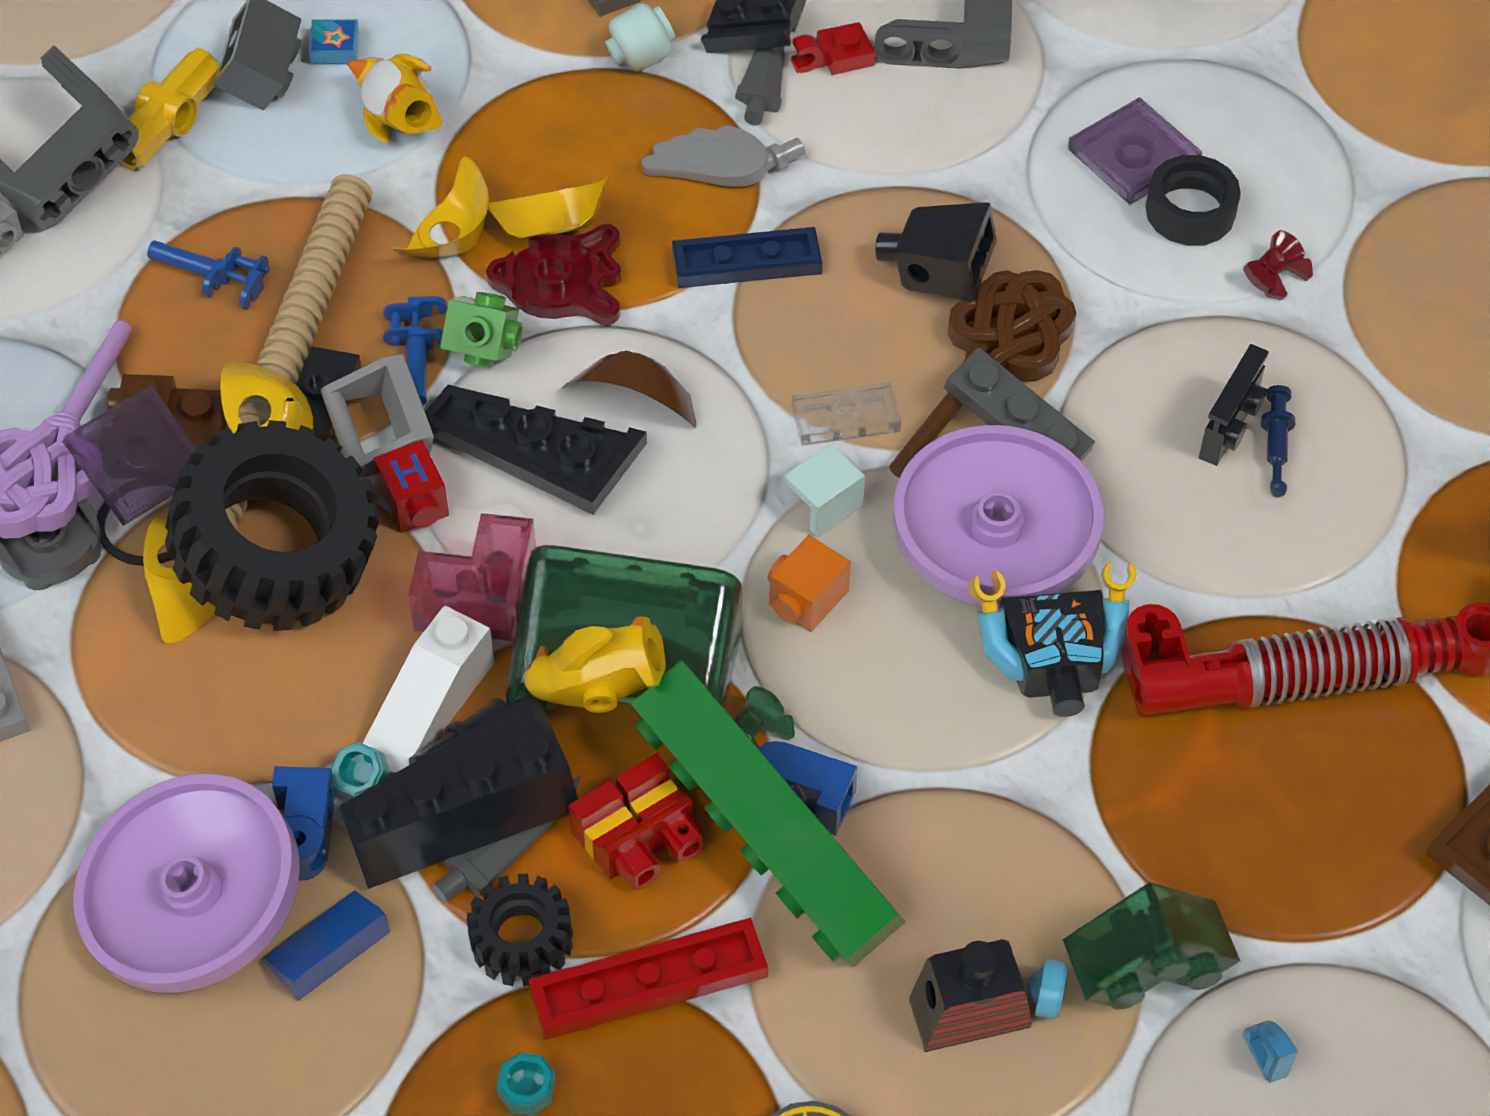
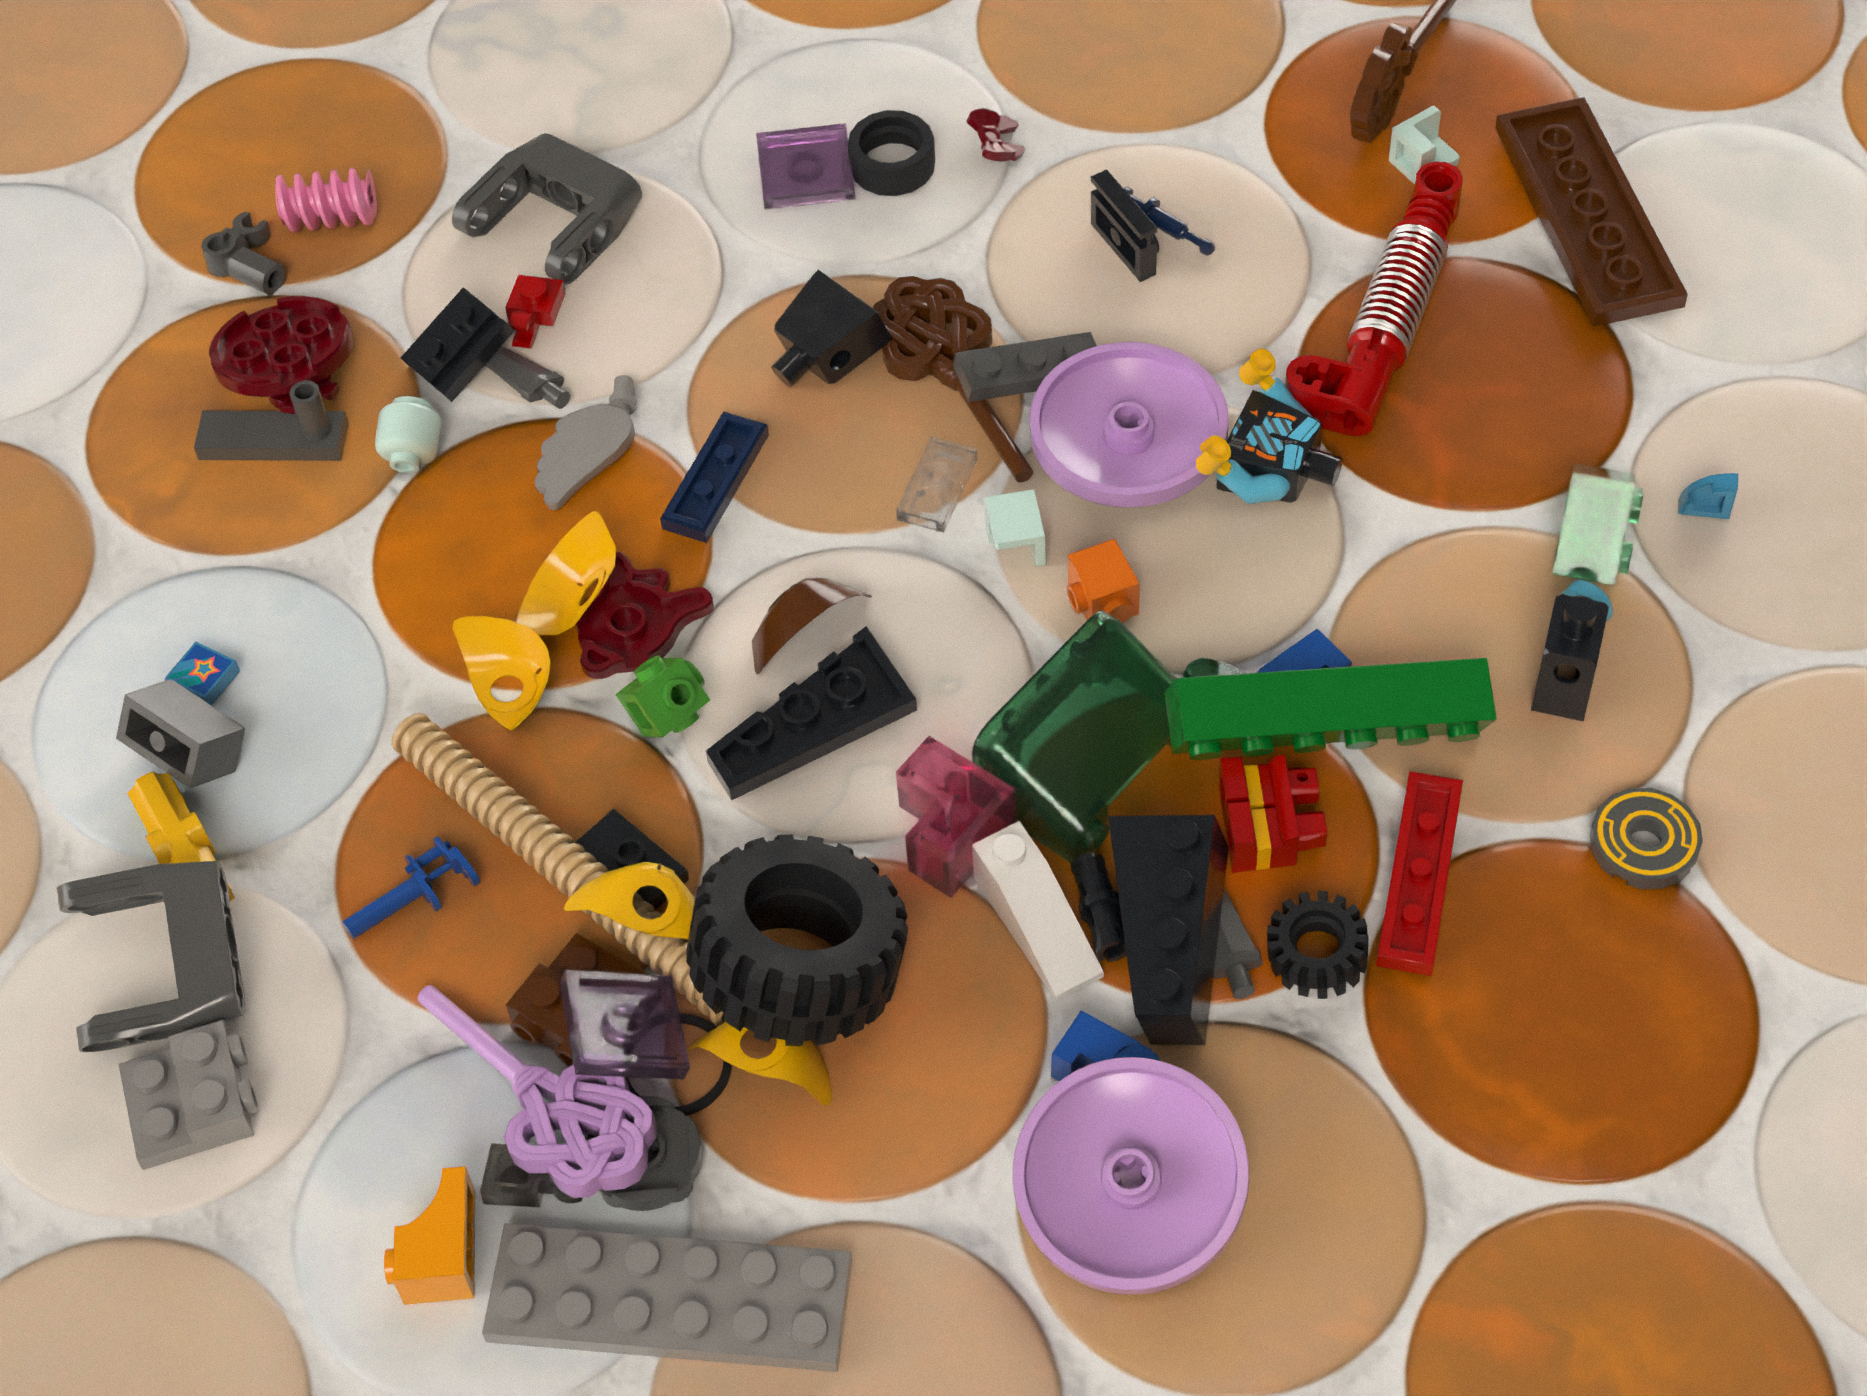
camera: 55 degrees left, 0 degrees up
(327, 944) = (1243, 1084): blue slope -> none
(359, 768) = (1084, 992): teal tile -> none
(394, 382) = (707, 796): light grey tile -> none
(395, 95) = (329, 644): yellow animal -> none
(411, 486) = (802, 815): red brick -> none
(414, 338) = (626, 760): blue piece -> none
(526, 1084) = (1471, 1004): teal tile -> none
(599, 666) = (1136, 746): yellow animal -> none

